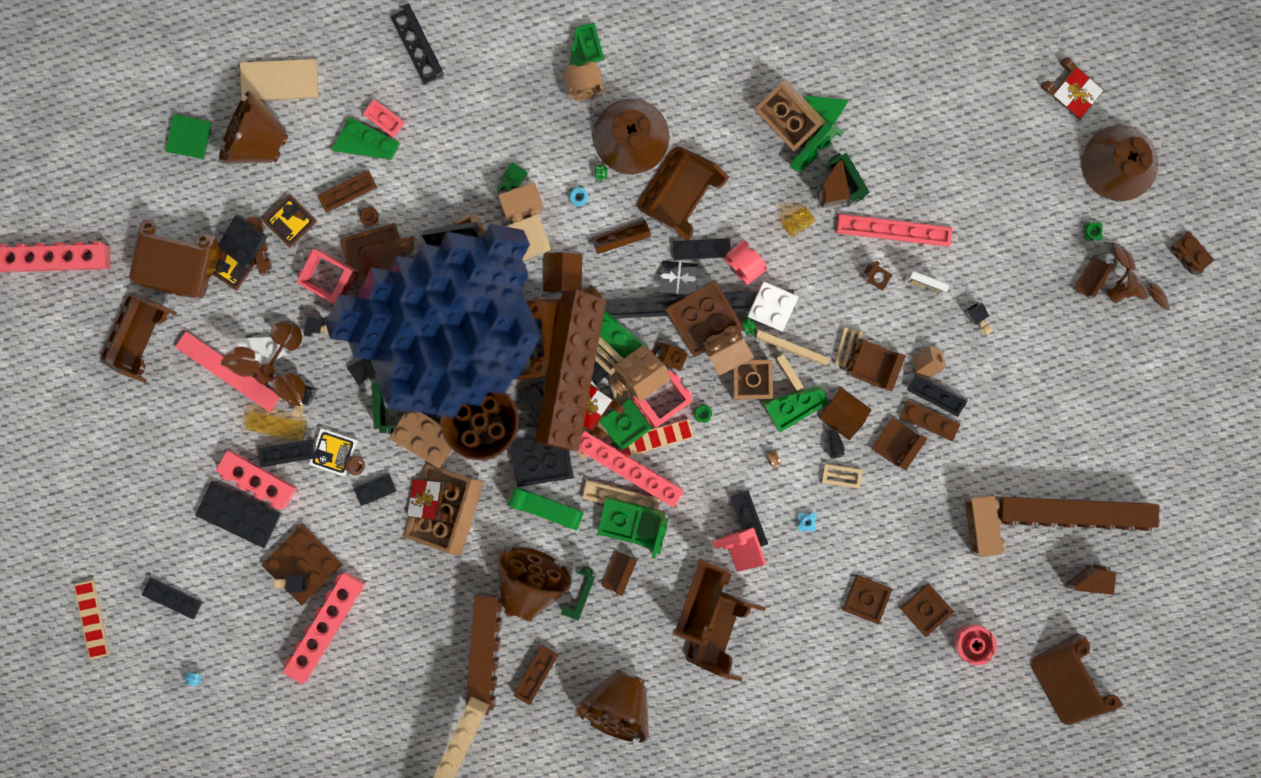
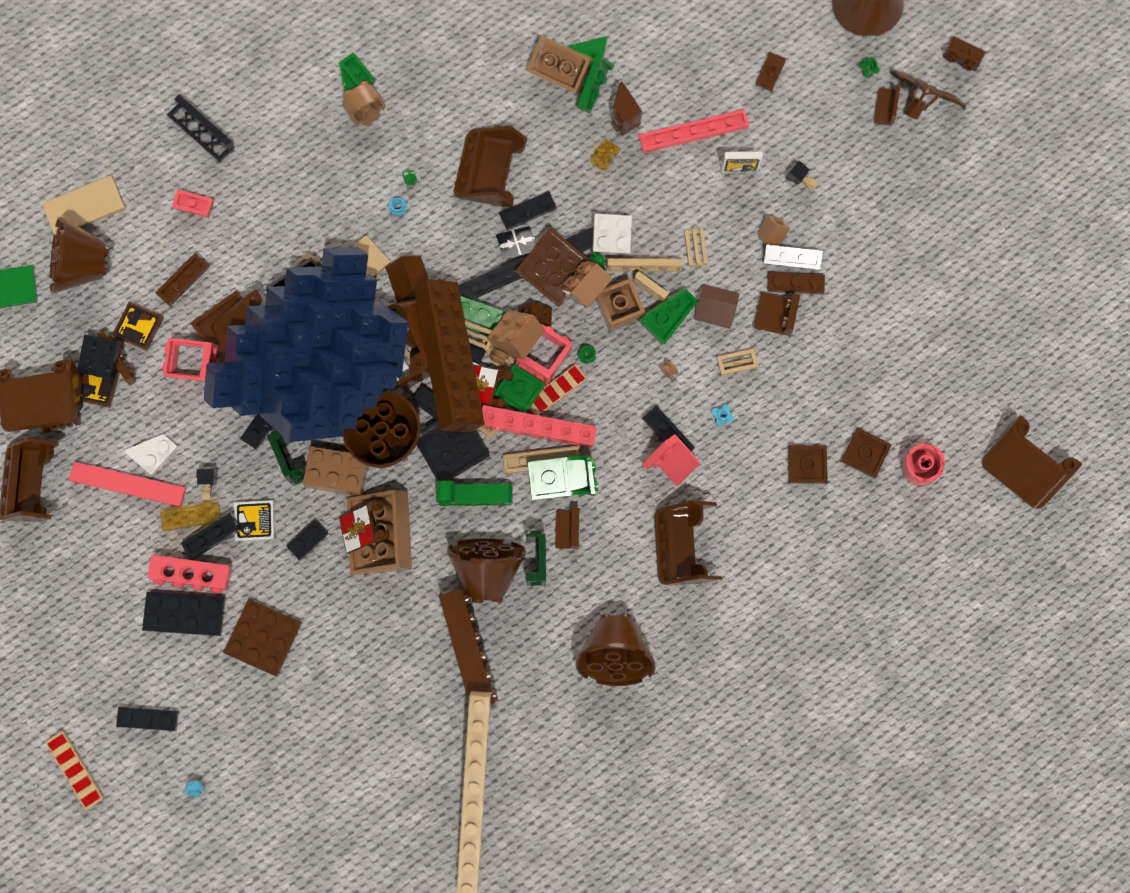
camera: 20 degrees left, 10 degrees down
(243, 363) = (137, 458): reddish brown plant -> none
(293, 667) = (309, 699): coral brick -> none
(294, 583) = (260, 654): black piece -> none
(313, 326) = (195, 411): black piece -> none
(354, 465) = (279, 524): reddish brown tile -> none
(365, 141) = (181, 230): green wing -> none
(369, 216) = (210, 294): reddish brown plate -> none
(513, 177) = (330, 211): green plate -> none
(521, 202) = (347, 226): medium nougat brick -> none
(536, 674) = (525, 654): reddish brown plate -> none
(621, 237) = (450, 226): reddish brown plate -> none
(634, 151) = (425, 138): reddish brown cone -> none
(701, 601) = (654, 517): reddish brown windscreen -> none
(745, 262) = (571, 204): coral brick -> none
(835, 446) = (719, 336): black cone -> none
(852, 176) = (648, 108): dark green panel -> none
(870, 272) = (688, 172): reddish brown bracket -> none
(874, 364) = (725, 251): reddish brown panel -> none
(984, 525) = (884, 353): medium nougat brick -> none
(994, 198) = (770, 71): none -> reddish brown plate
(1080, 512) = (962, 310): reddish brown brick -> none
(1094, 580) = (1007, 364): reddish brown slope -> none

